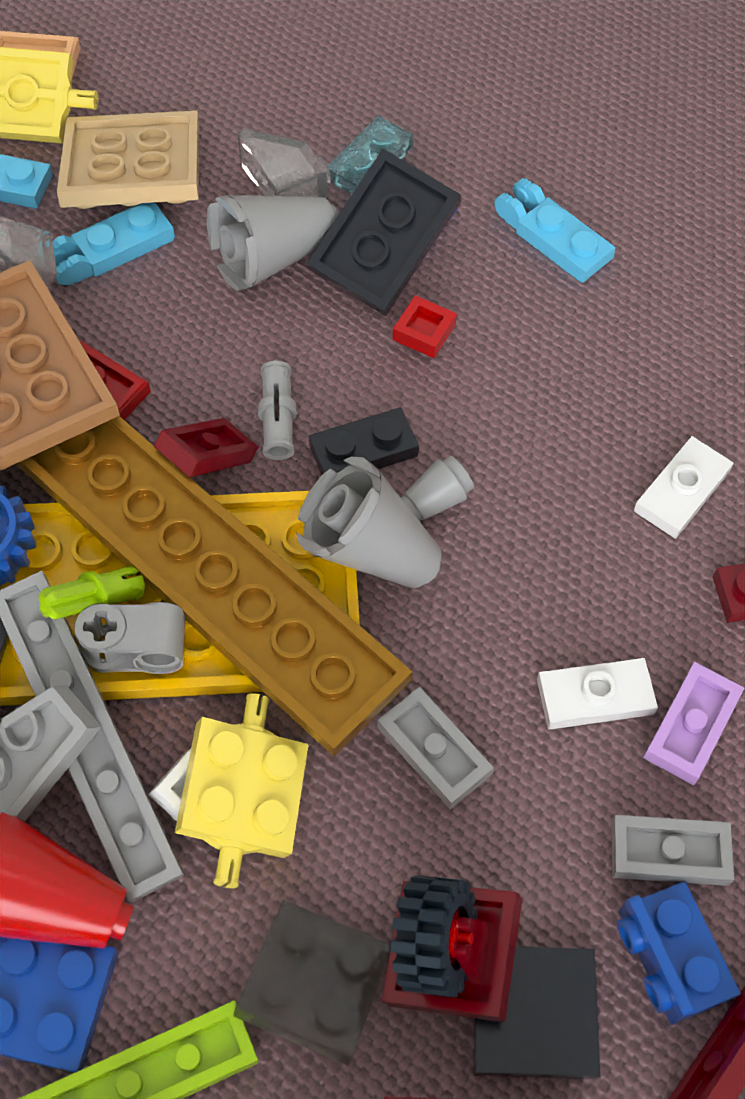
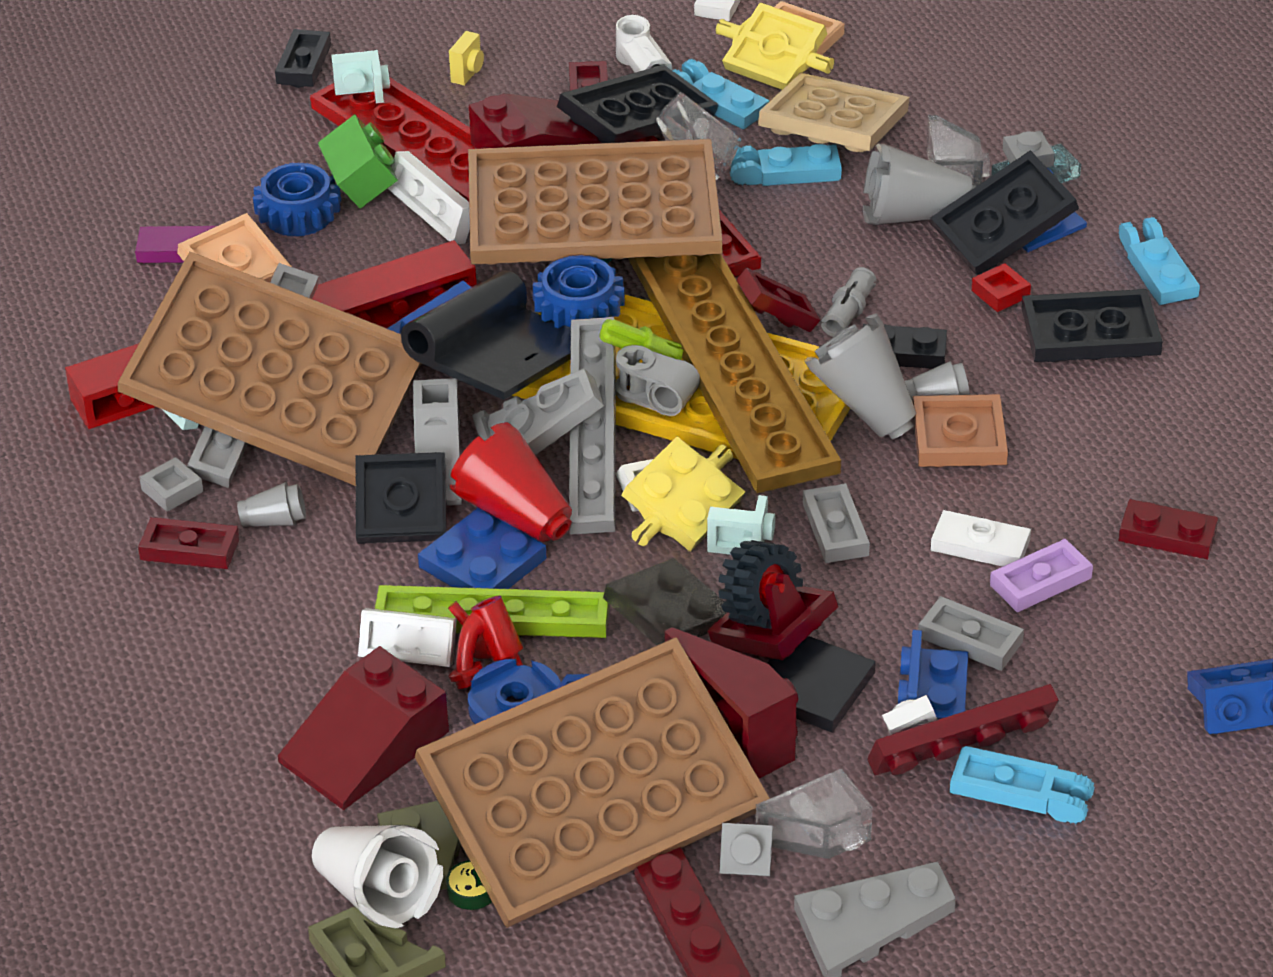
camera: 30 degrees right, 20 degrees down
(335, 817) = (732, 526): none -> light aqua bracket
(360, 140) = (1017, 145): none -> light grey plate
(493, 546) = (959, 430): none -> nougat plate
(541, 342) = (1091, 325): none -> black plate
(683, 487) = (1142, 449): white plate -> none
(698, 1044) = (909, 715): none -> white plate

